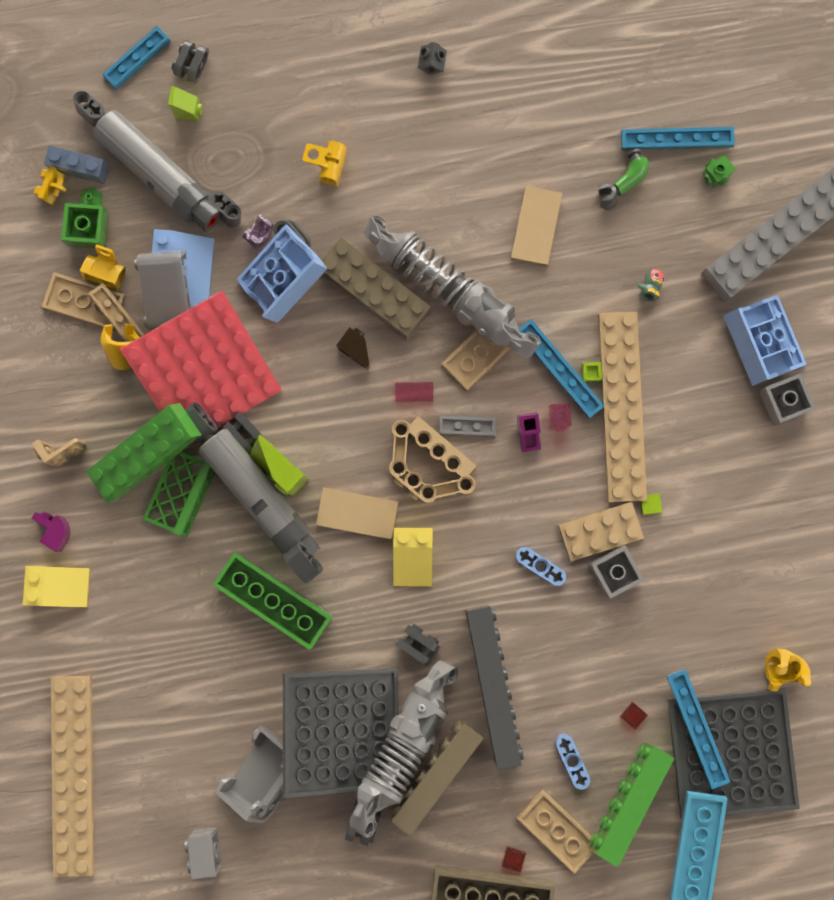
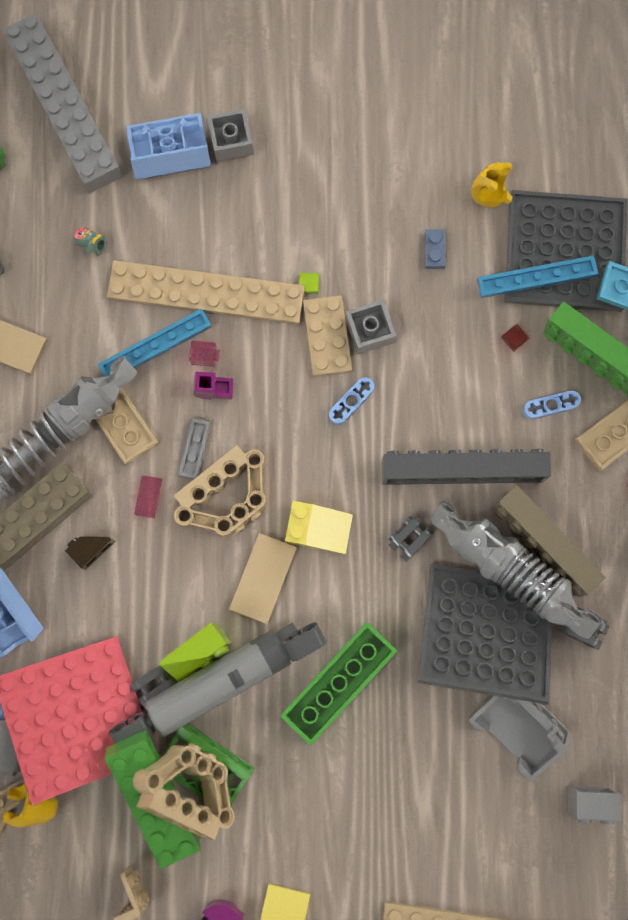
camera: 75 degrees left, 5 degrees down
(135, 482) = (183, 812): none -> tan brick
(592, 372) = (165, 315): lime tile -> none
(709, 622) = (435, 249): none -> sand blue plate

